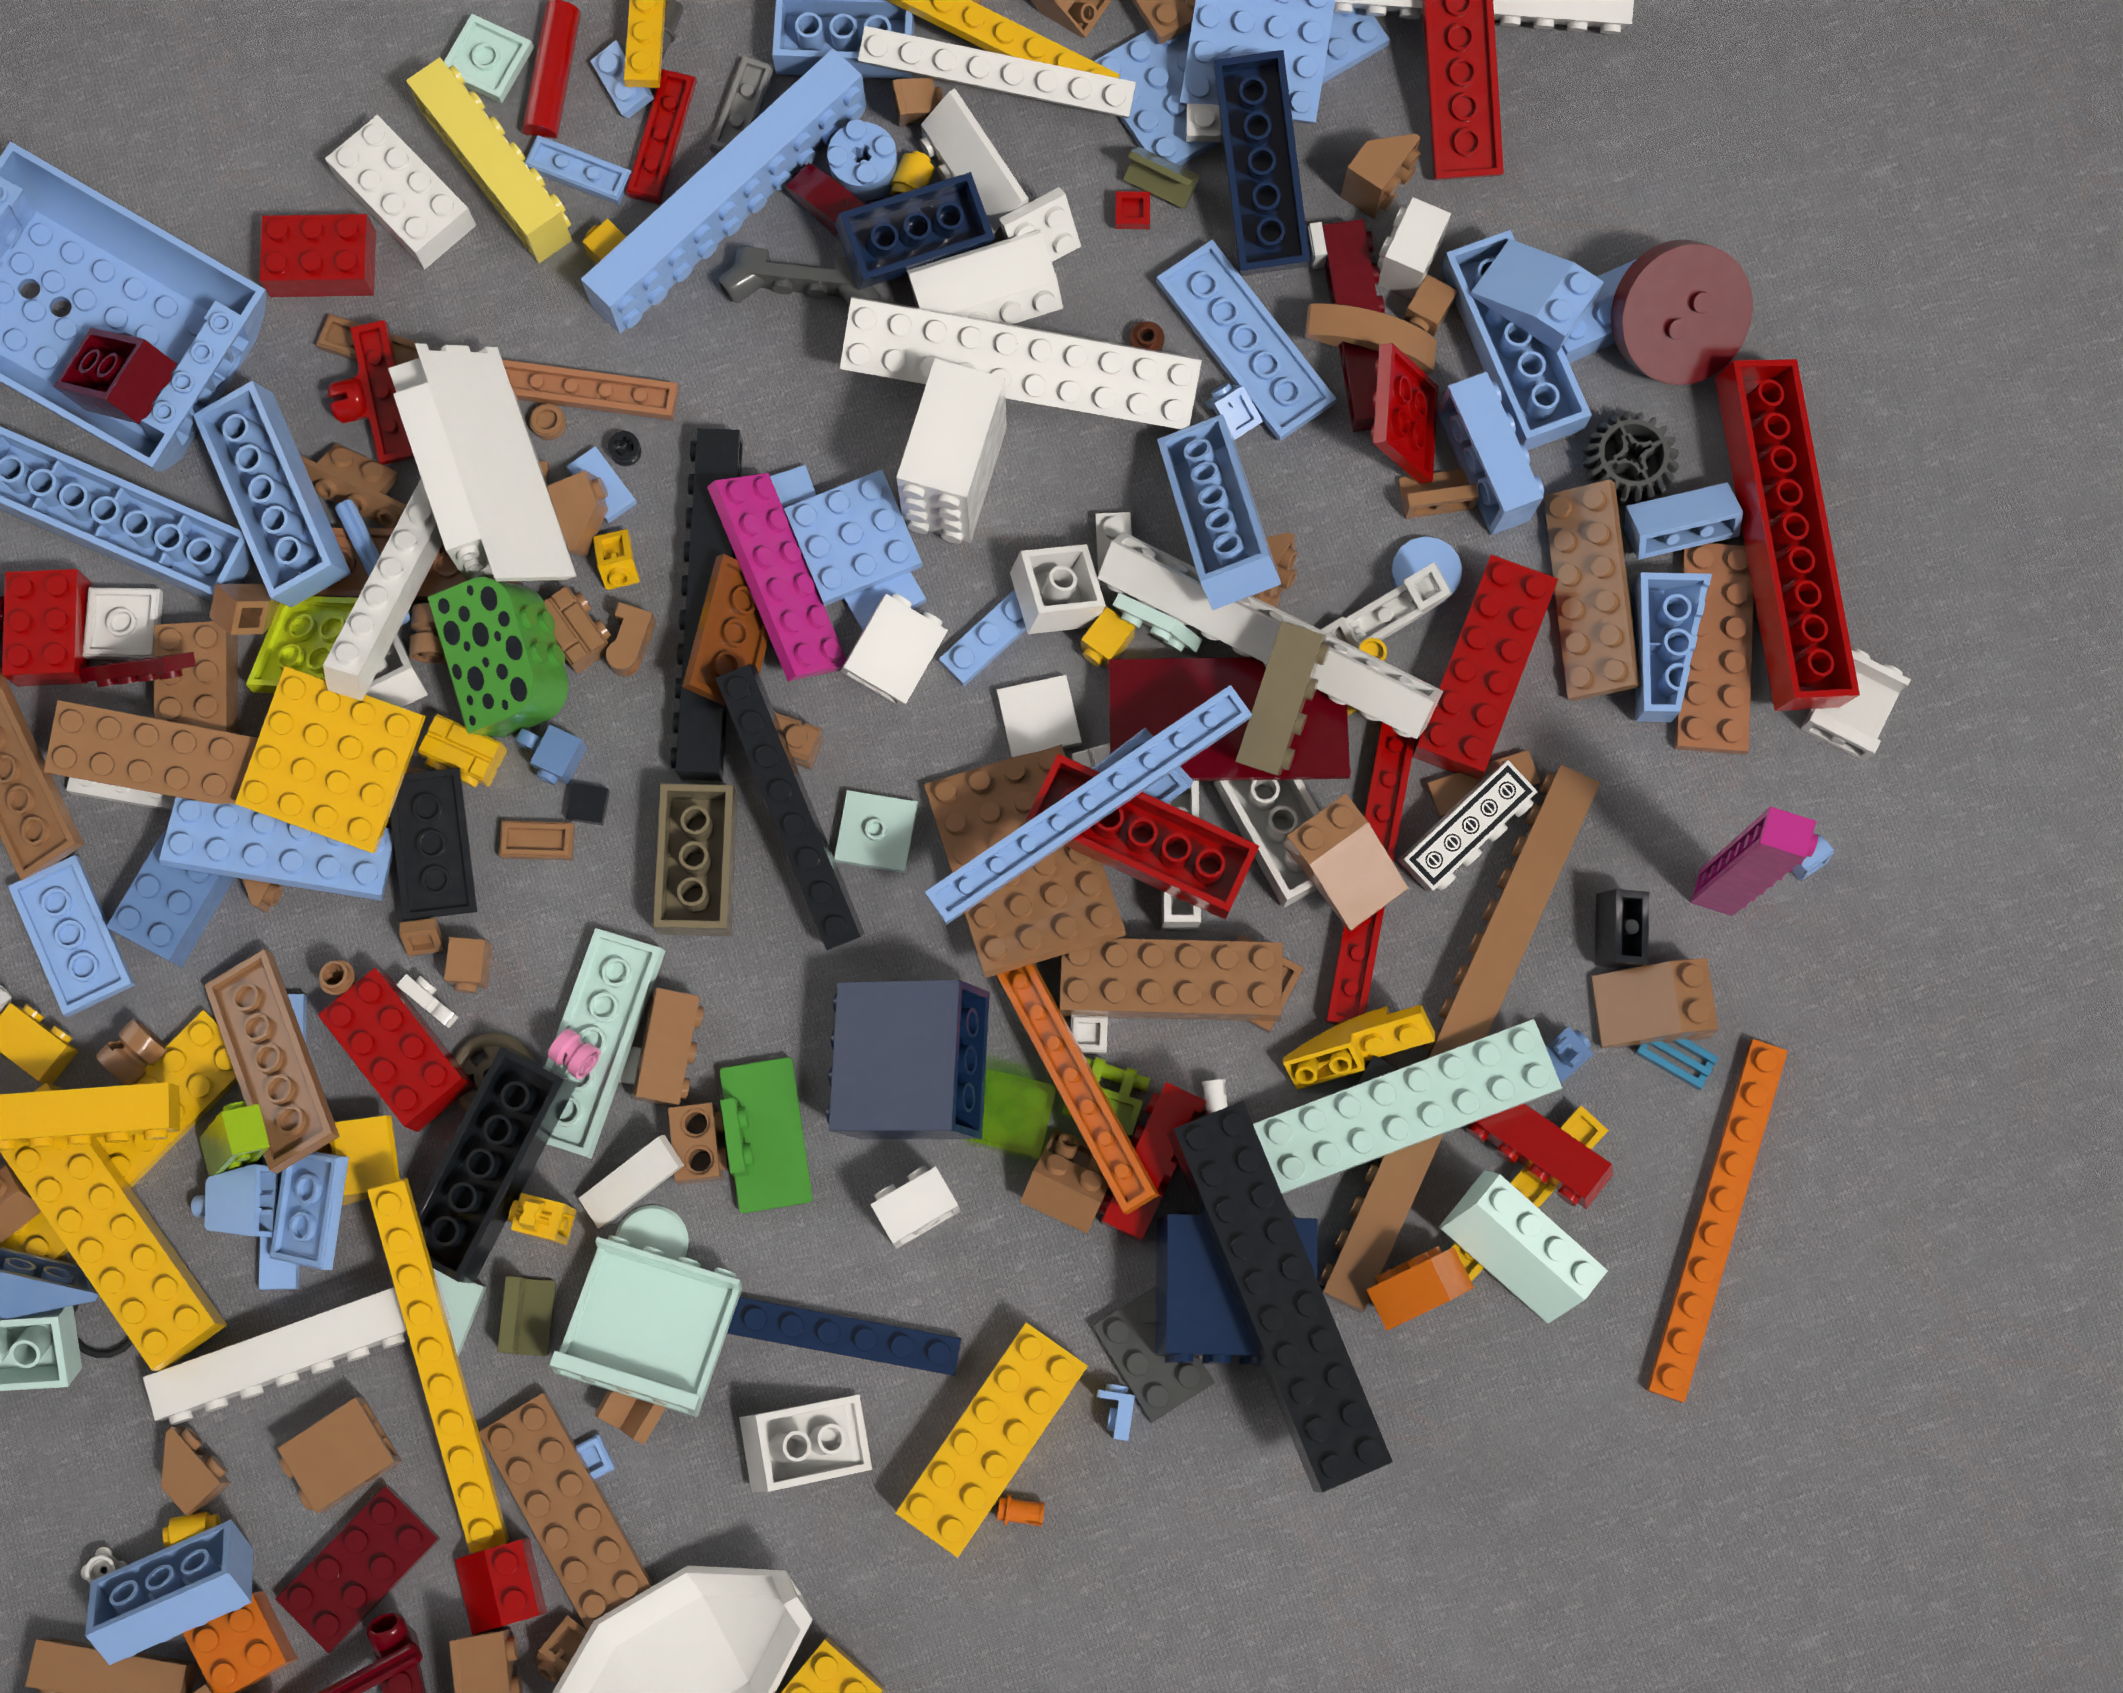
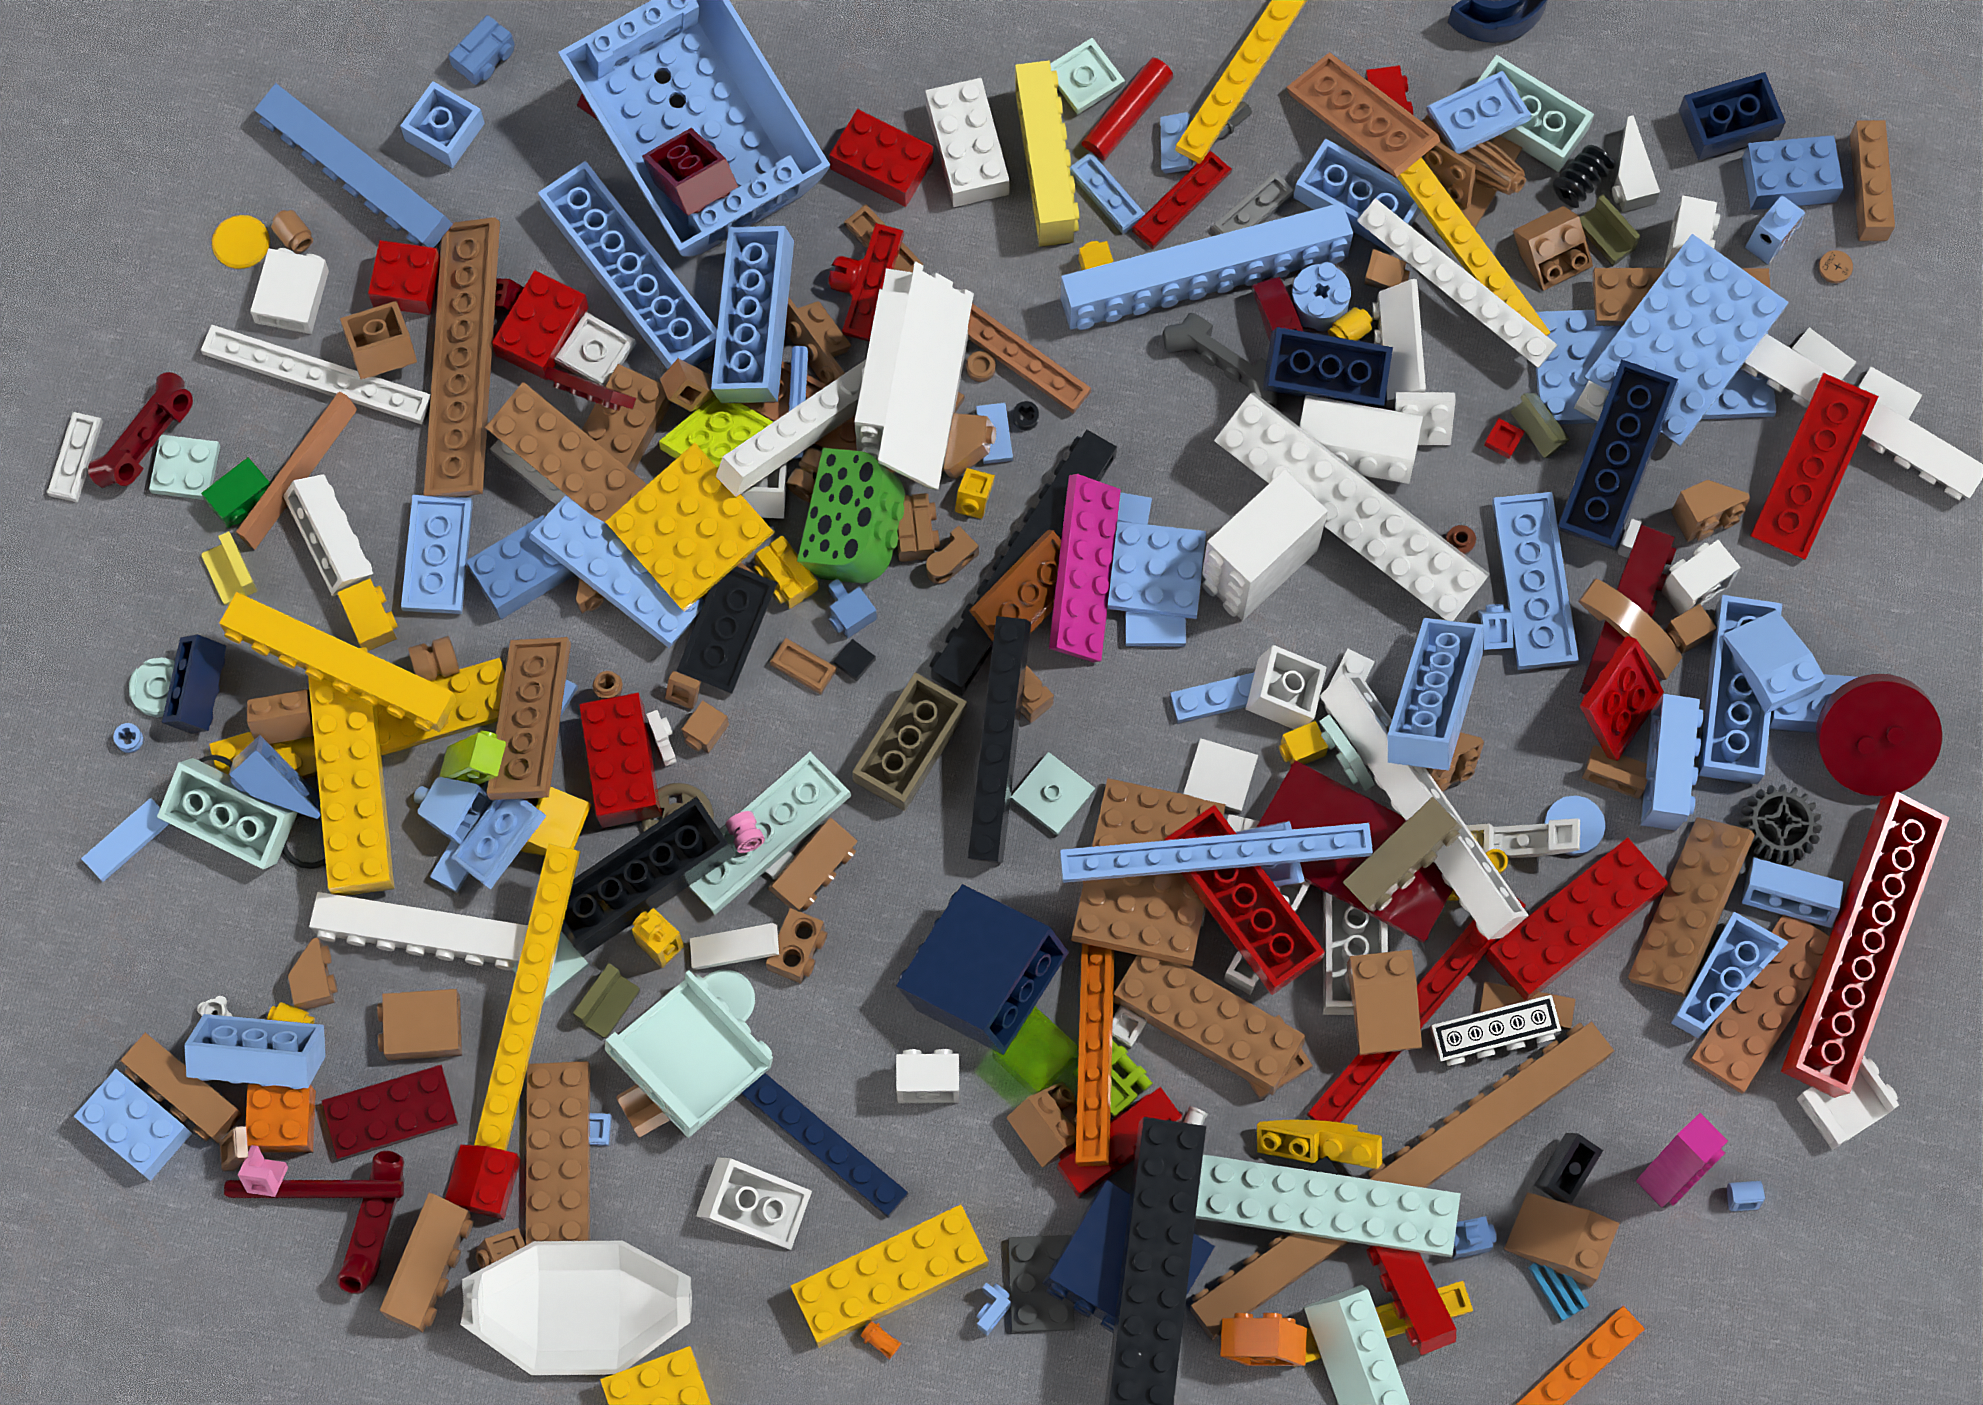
camera: 30 degrees right, 5 degrees down
(765, 1135) = (848, 968): bright green bracket -> none
(894, 649) = (1140, 667): white brick -> none

